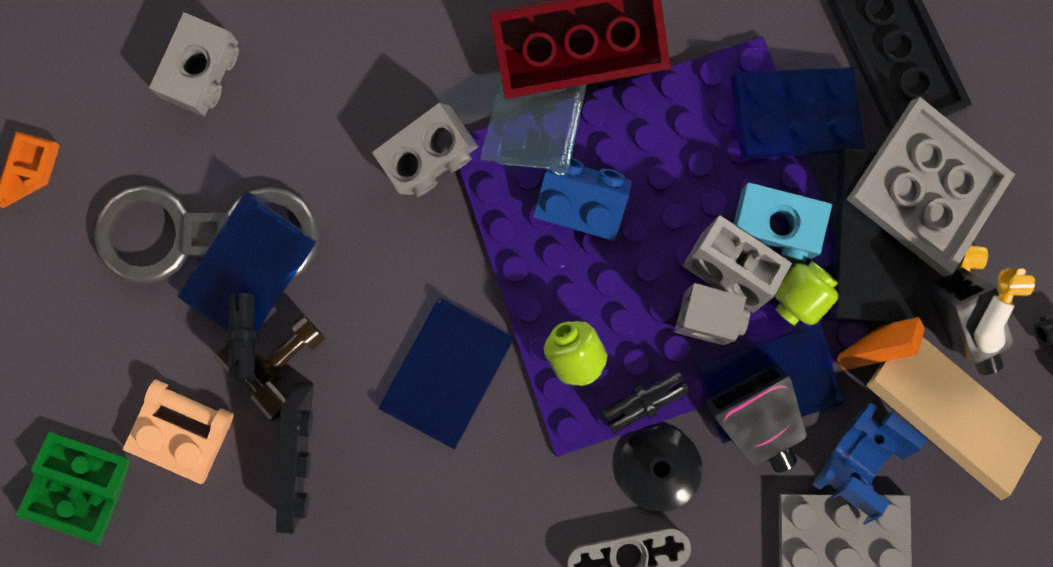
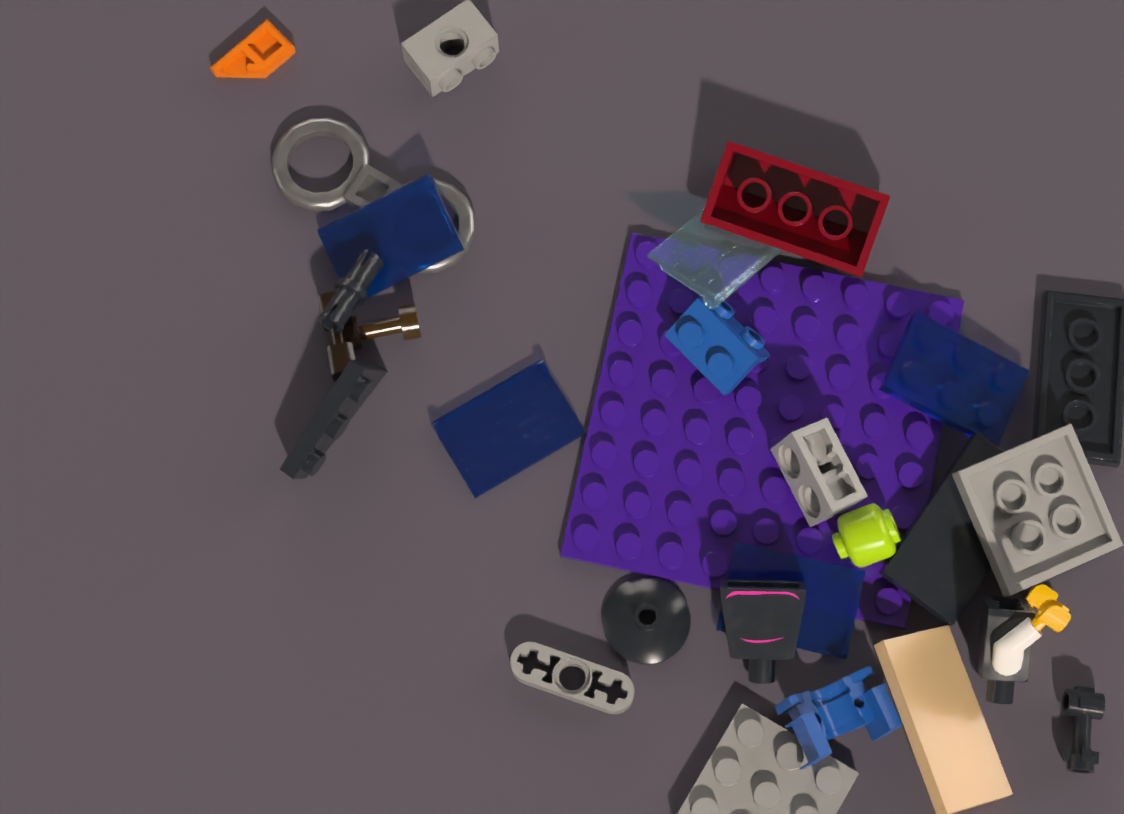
camera: 30 degrees right, 10 degrees down
(74, 488) = (130, 339): green slope -> none
(174, 445) = (235, 351): light nougat plate -> none
(421, 140) = (606, 215): light grey brick -> none
(575, 353) = (630, 467): lime head -> none
(645, 401) = (668, 548): black pin -> none
(712, 315) = (769, 500): light grey brick -> none
(804, 215) = (907, 467): medium azure brick -> none
(884, 344) = (912, 621): orange tile -> none

